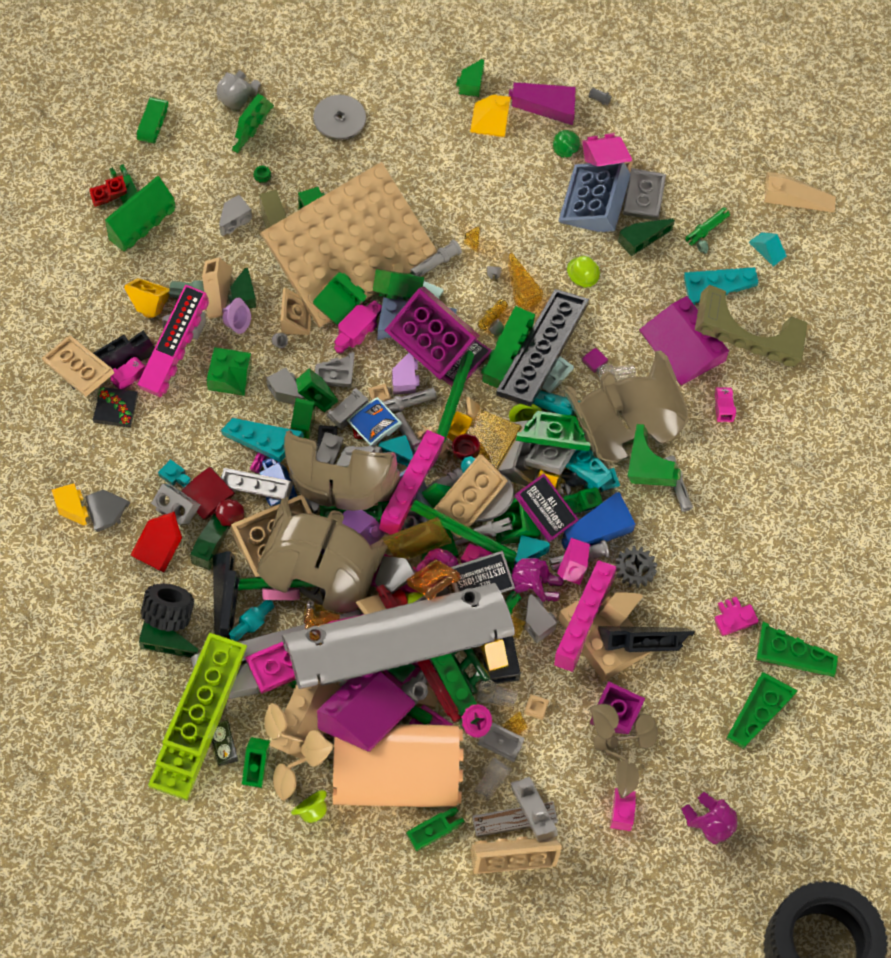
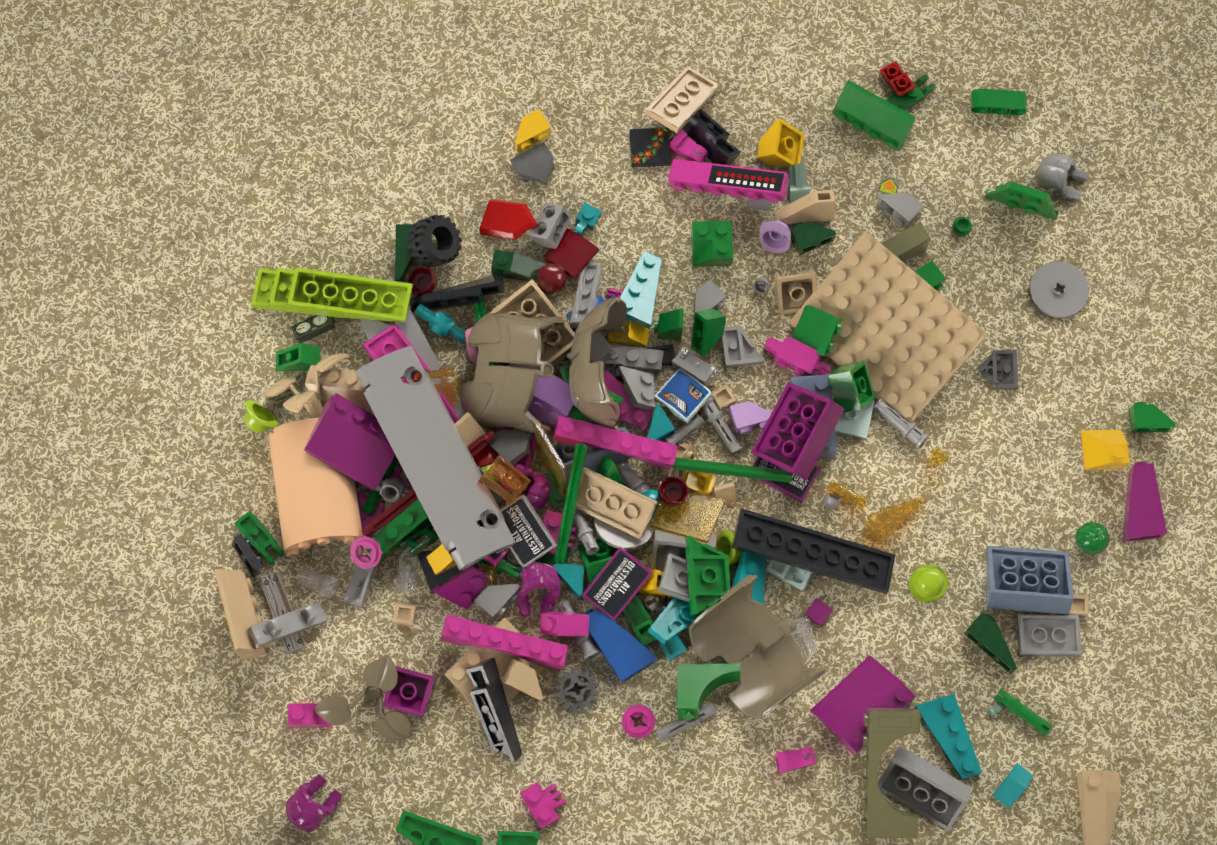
camera: 80 degrees right, 10 degrees up
(200, 627) = (423, 280): none -> dark red hair
(209, 222) = (888, 185): none -> tile
(404, 173) = (1001, 369): none -> dark grey slope
(452, 842) = (244, 550): none -> black plate
(494, 271) = (902, 487): light grey hinge -> none
(508, 346) = (806, 514): green wedge -> none
(515, 724) = (379, 596): clear yellow slope -> none
(524, 644) = (463, 587): none -> magenta wing
(600, 96) = (1168, 565): dark grey pin -> none
(605, 150) = (1083, 579): dark pink slope -> none
(671, 514) = (634, 712): none -> dark pink gear
(766, 306) = (924, 788): none -> light grey slope

